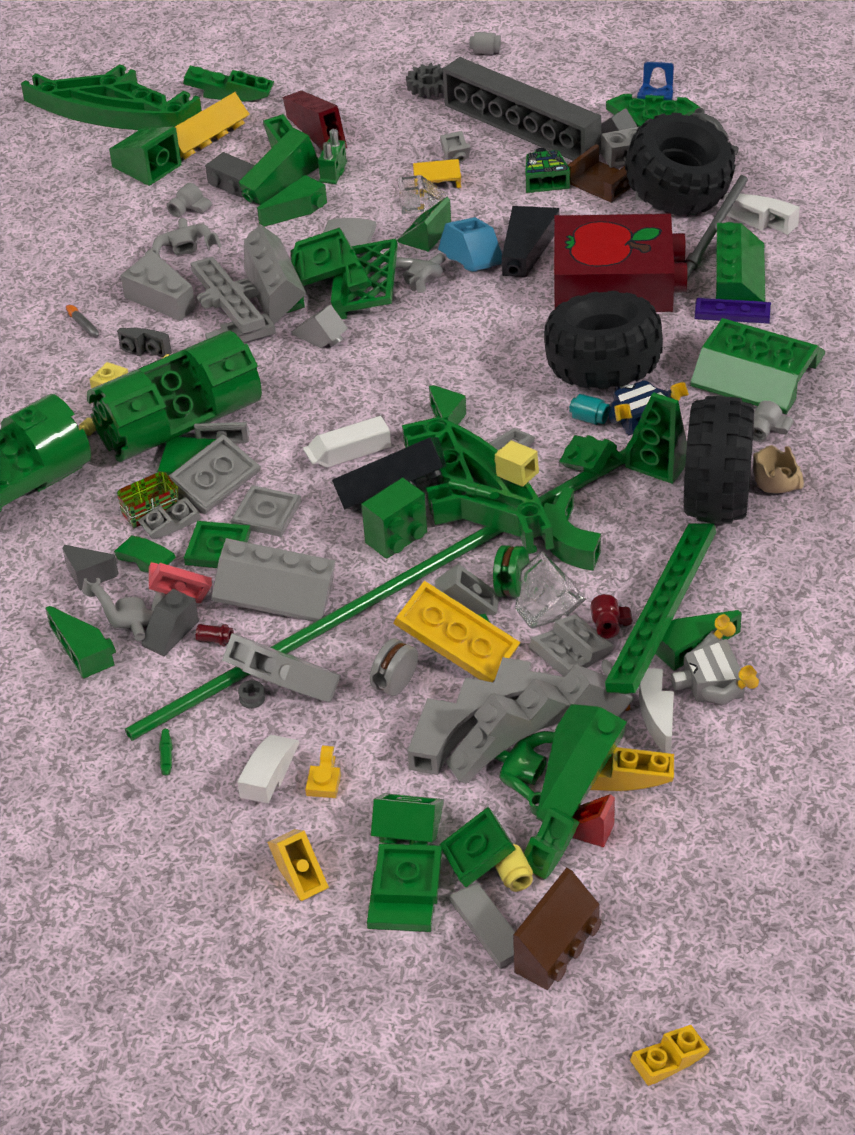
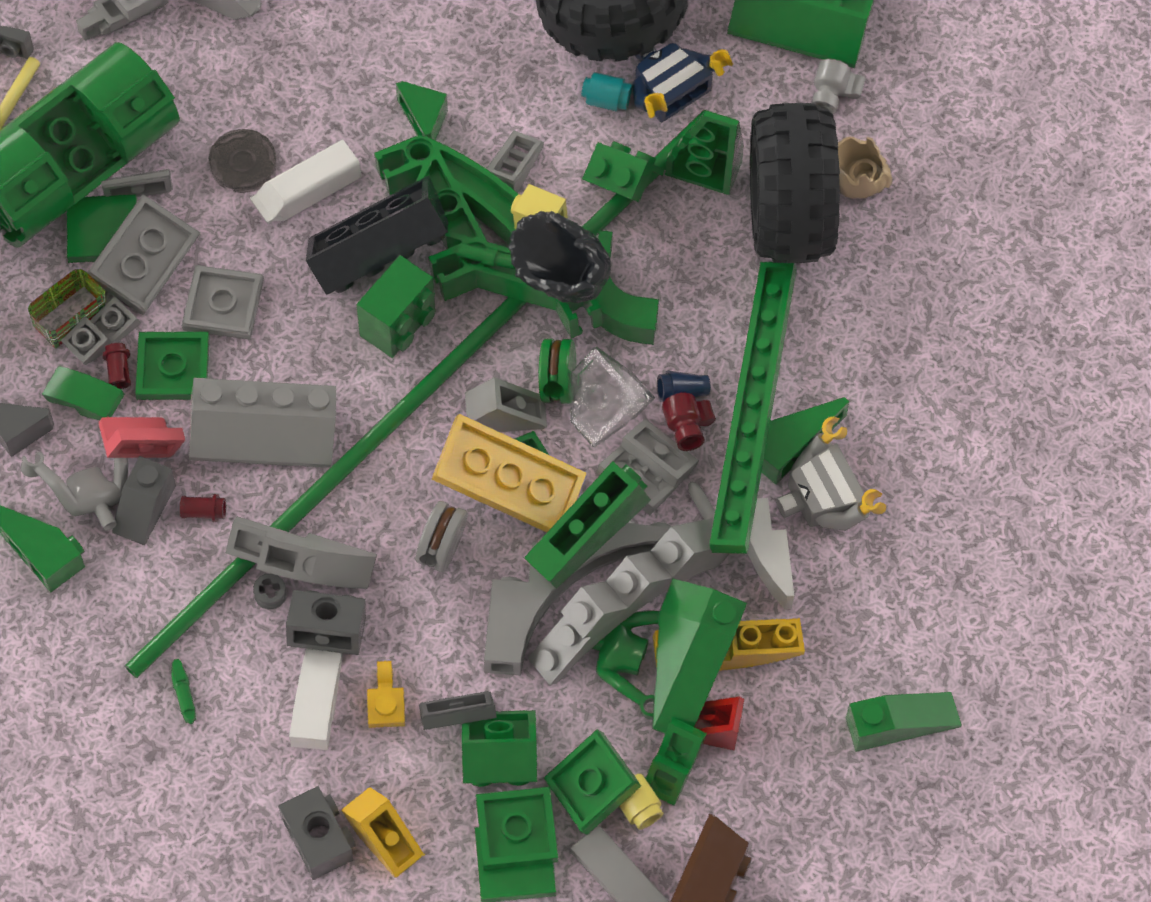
camera: 15 degrees left, 20 degrees up
(176, 535) = (117, 364): none -> dark red pin
(243, 857) = (322, 853): none -> dark grey brick
(288, 715) = (310, 631): none -> dark grey brick
(302, 426) = (242, 160): none -> clear smoke tile
(379, 787) = (457, 710): none -> dark grey tile
(512, 661) = (589, 523): none -> green slope
(523, 484) = (559, 257): none -> black hair
(623, 596) = (679, 382): none -> dark blue cone
(746, 836) = (900, 718): none -> green slope

